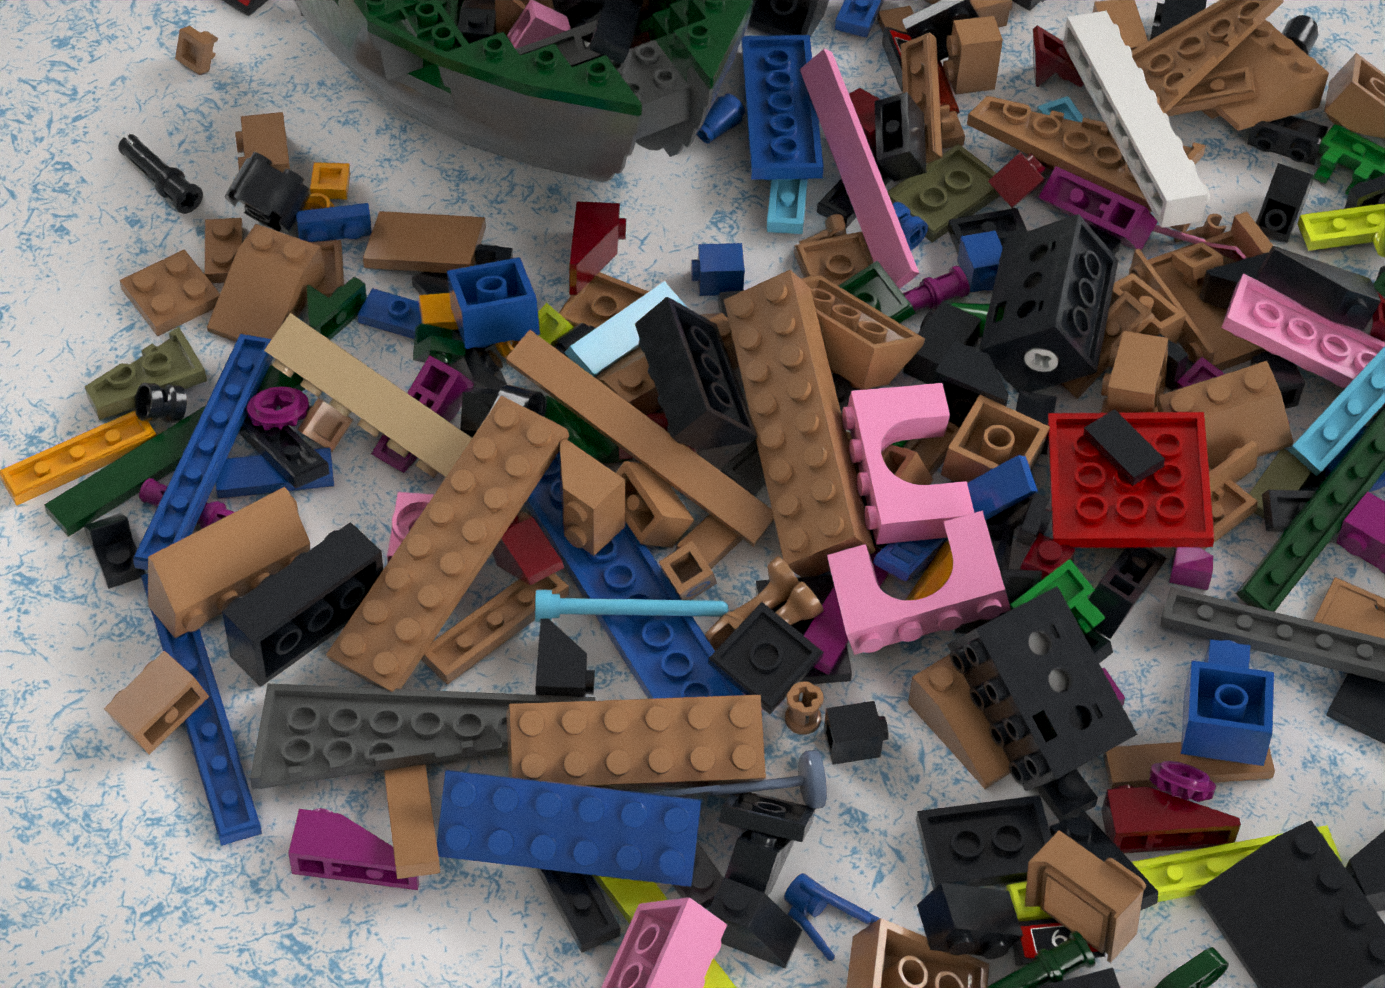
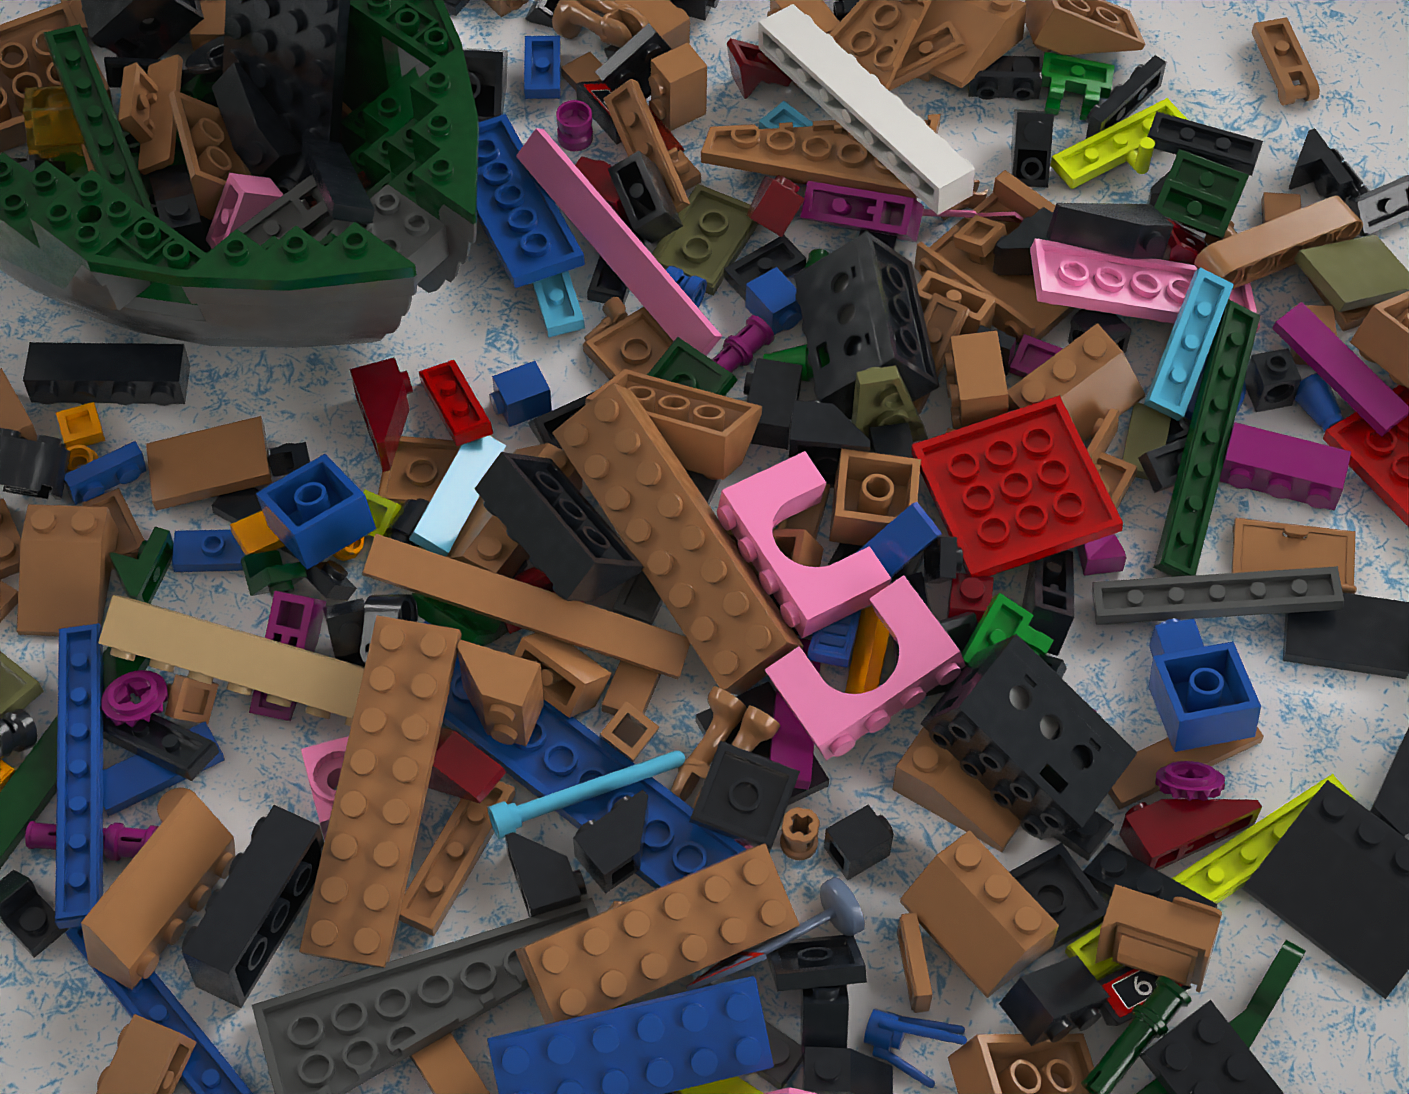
camera: 20 degrees left, 5 degrees up
(371, 144) = (106, 373): none -> black brick
(634, 655) = (615, 843): none -> black slope
(658, 258) = (455, 403): none -> red tile
(858, 849) = (914, 963): none -> medium nougat tile
(867, 62) = (574, 125): none -> magenta wheel
(933, 824) = (980, 914): none -> medium nougat slope
(1039, 369) = (883, 401): none -> olive wing
(1124, 447) = (1000, 457): black tile -> none

